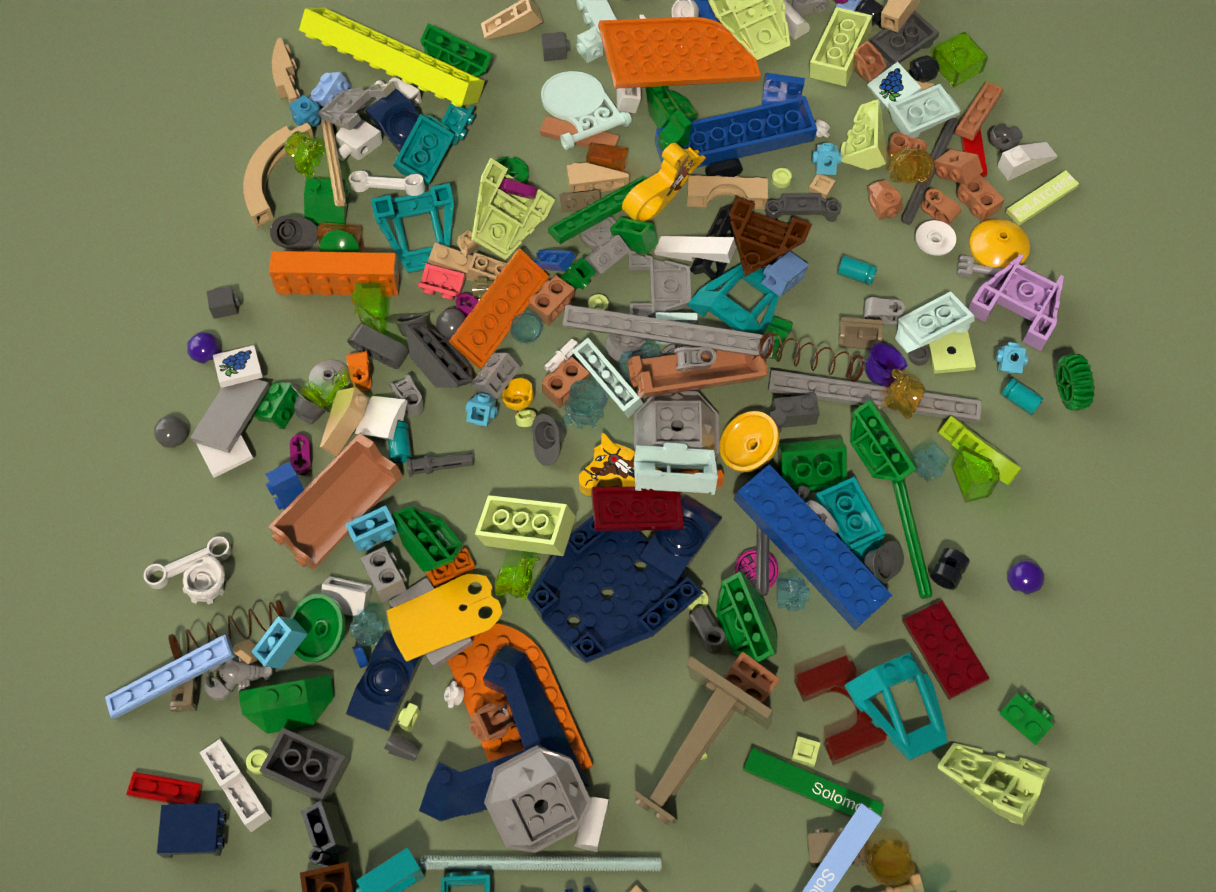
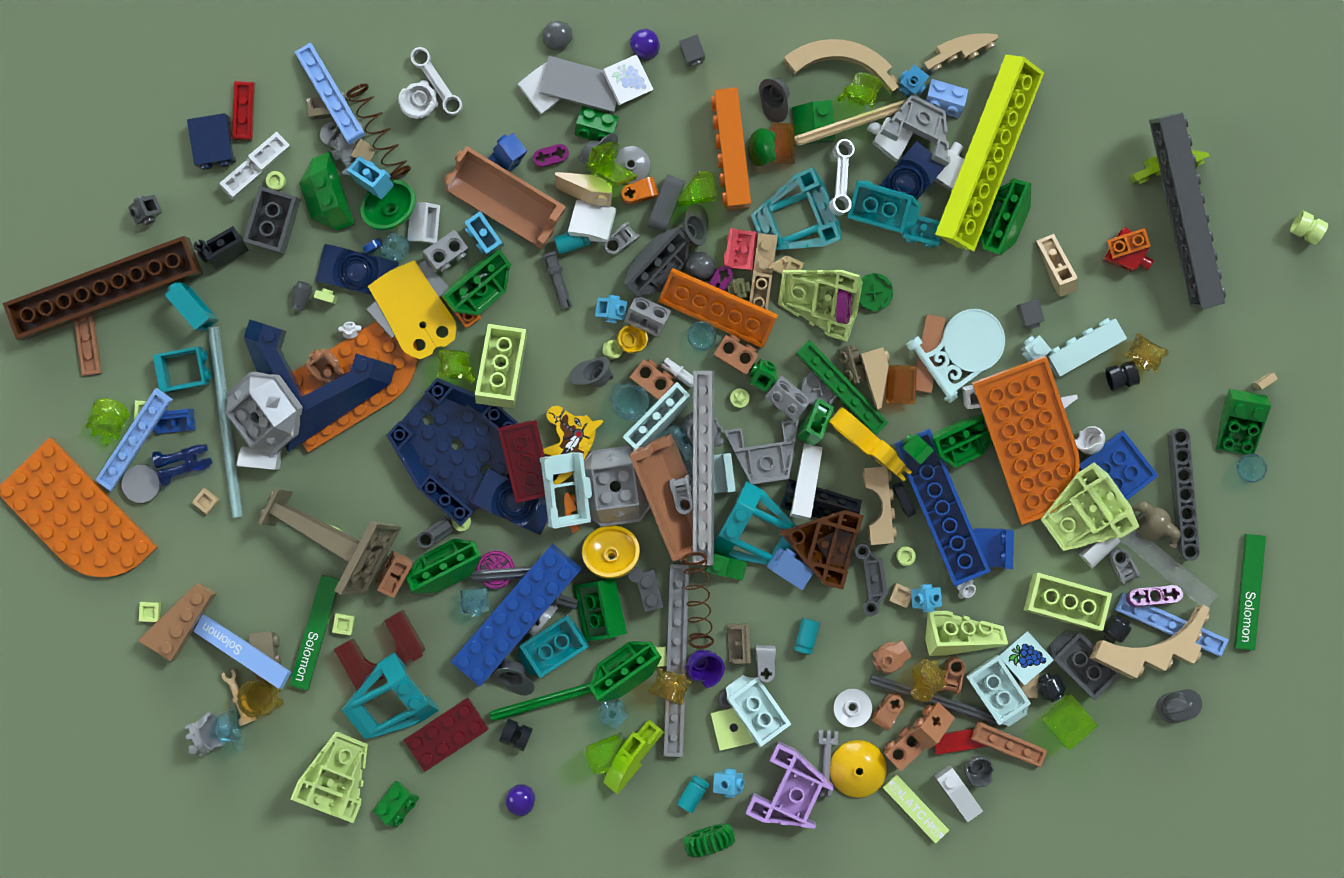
camera: 85 degrees right, 25 degrees up
(554, 260) = (771, 350): blue hinge -> none
(868, 61) = (1050, 628): nougat hand -> none

